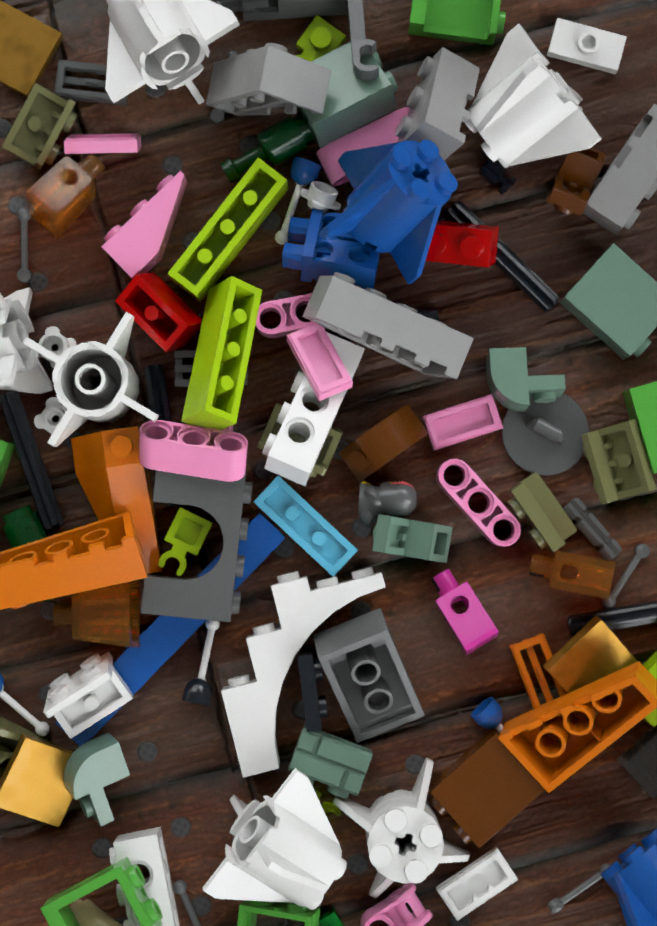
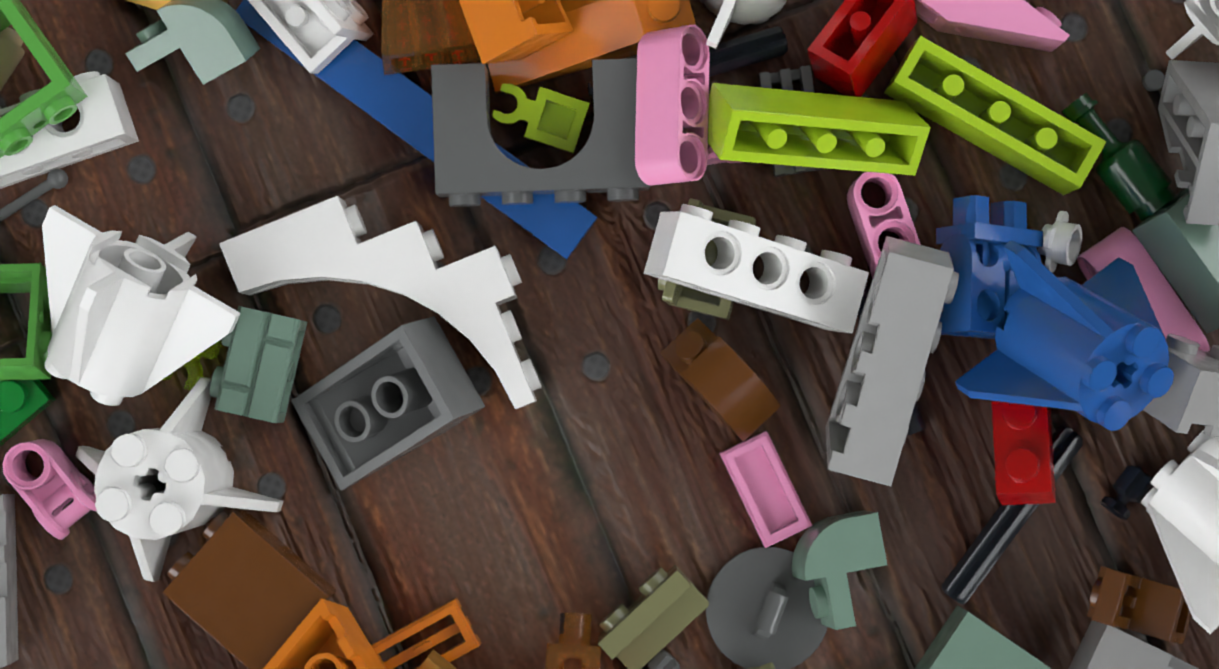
camera: 85 degrees right, 0 degrees up
(198, 689) = (335, 167): hinge -> none
(303, 173) = (1091, 211): hinge -> none
(305, 526) = (587, 284): medium azure plate -> none
(314, 705) = (334, 330): black plate -> none
(319, 361) = (825, 269): bright pink tile -> none
(389, 498) = (642, 399): dark grey animal -> none
(411, 538) = (589, 437): sand green brick -> none
(470, 628) = (474, 540): dark pink torso -> none
(476, 883) = (113, 596): white plate -> none
(488, 714) = (354, 581): blue hinge -> none
(494, 510) = (648, 551): bright pink beam -> none

